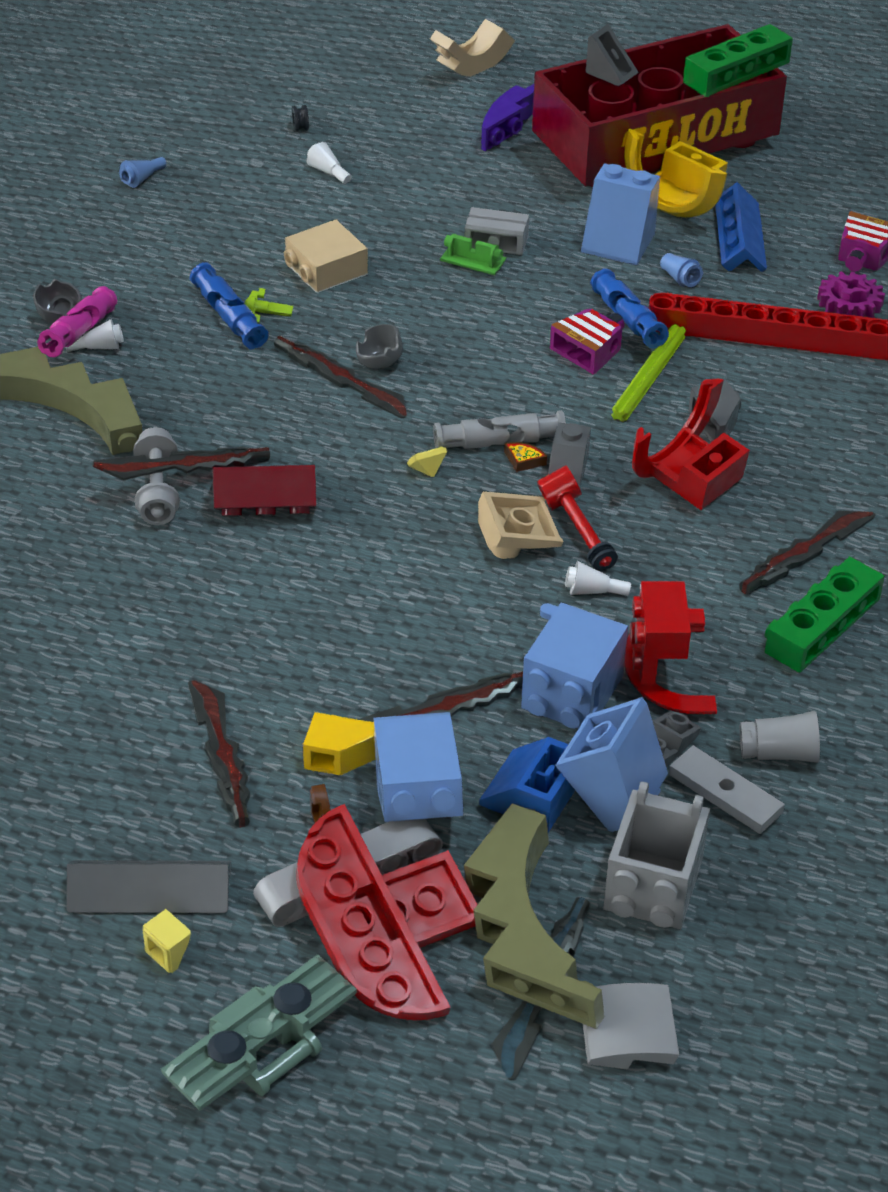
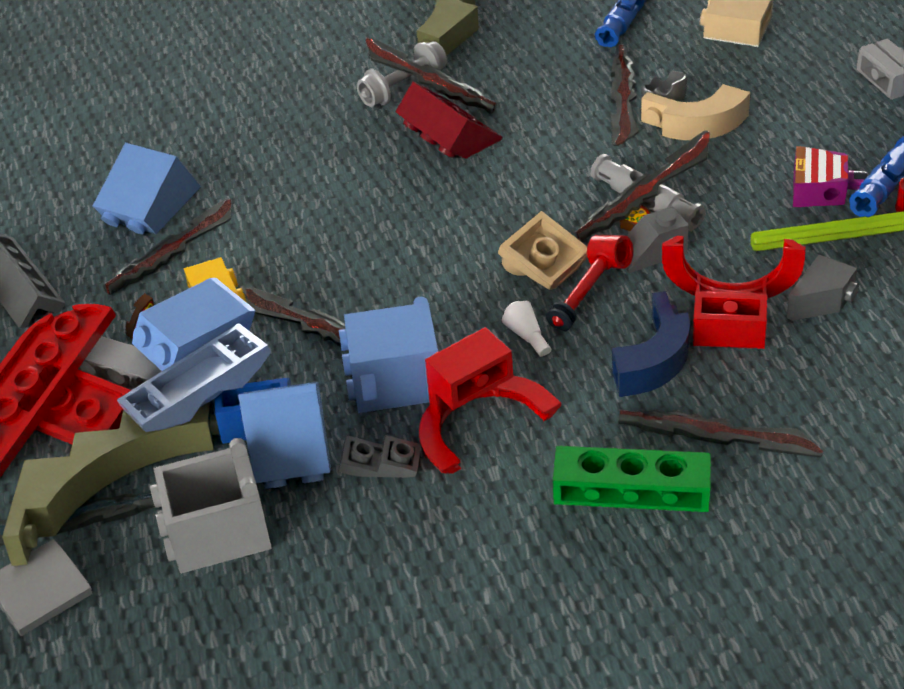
camera: 60 degrees right, 0 degrees up
(133, 724) = (144, 189): none -> medium blue slope
(266, 307) = (645, 19): lime piece -> none
(428, 461) = (570, 178): light yellow slope -> none
(433, 360) = (686, 120): none -> tan arch
(483, 258) = (843, 75): bright green hinge -> none
(503, 790) = (195, 380): none -> sand blue slope
(508, 426) = (646, 186): none -> pearl dark grey sword
(700, 518) = (658, 360): none -> dark blue arch
(726, 789) = (351, 521): light grey tile -> none
(782, 738) = (442, 526): light grey plant -> none

